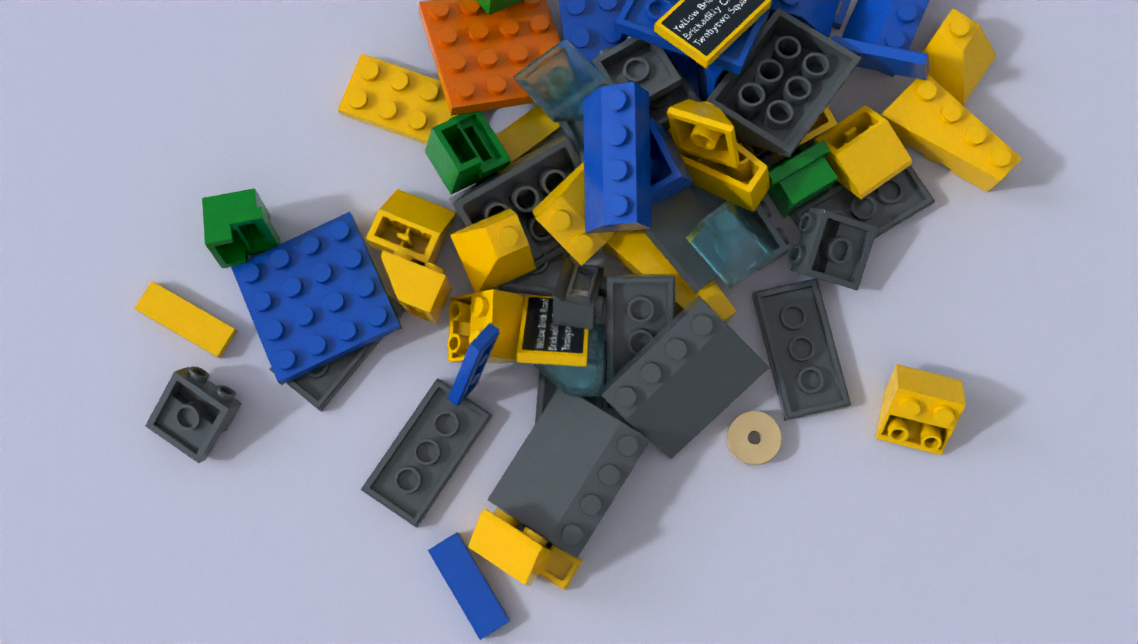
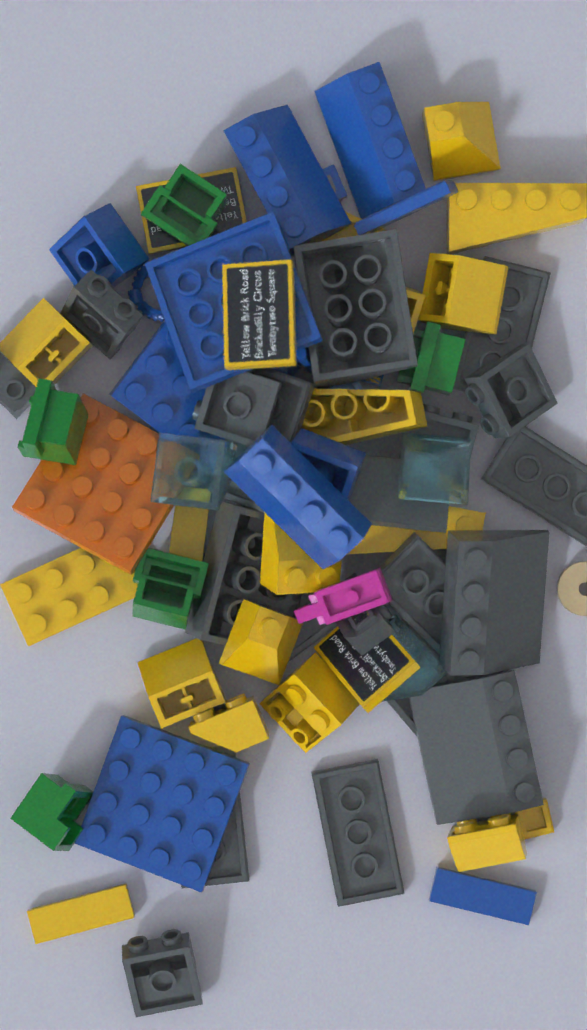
camera: 40 degrees left, 10 degrees up
(473, 364) = (336, 743): blue tile -> none
(581, 268) = (346, 598): none -> dark pink hinge
(703, 132) = (336, 407): yellow slope -> none

